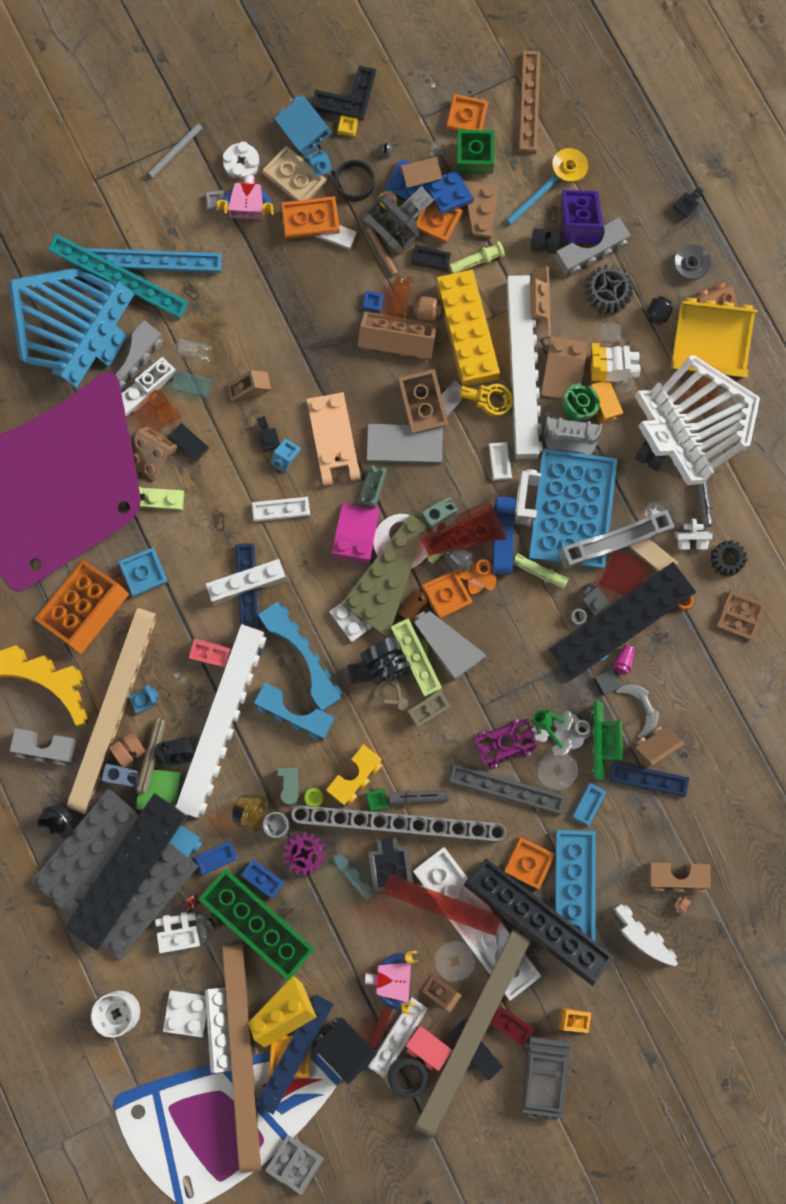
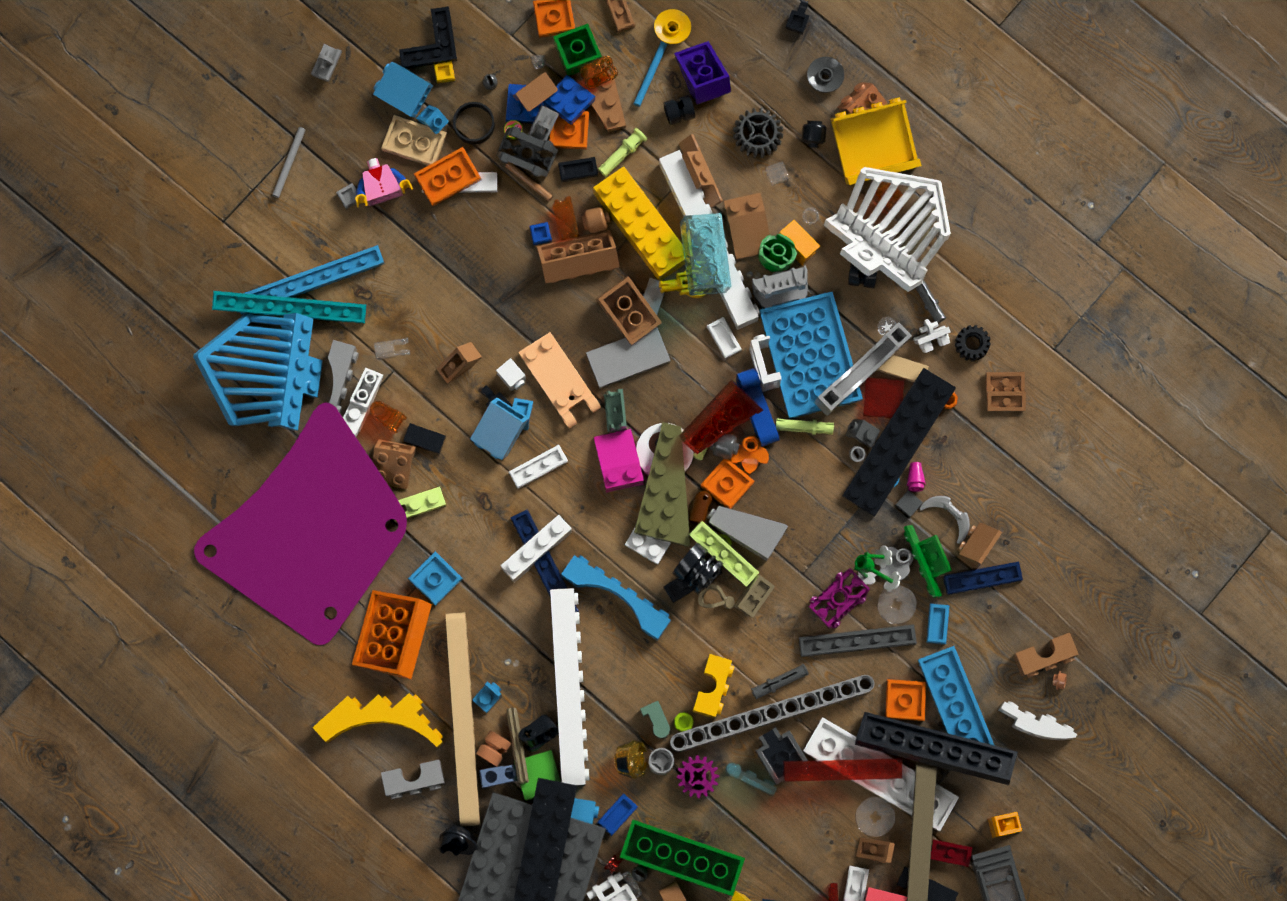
camera: 20 degrees left, 0 degrees up
(191, 384) = (403, 382): clear light blue tile -> none
(210, 652) = (532, 627): coral hinge -> none
(238, 151) = (353, 137): white plate -> none
(245, 76) = (326, 63): none -> light grey hips
(258, 459) = (499, 429): none -> dark azure brick
(262, 879) = (669, 815): blue plate -> none
(291, 416) = (511, 375): none -> white brick
(316, 723) = (656, 653): dark azure arch -> none
(377, 800) = (743, 700): green tile -> none
(393, 981) = (827, 857): torso -> none
(439, 512) = (687, 410): sand green leg -> none
(483, 178) = (597, 73): none -> clear orange piece
(513, 376) = (705, 254): none -> clear light blue brick
(573, 258) = (712, 115): light grey arch -> none
(613, 363) = (792, 203): white hips -> none

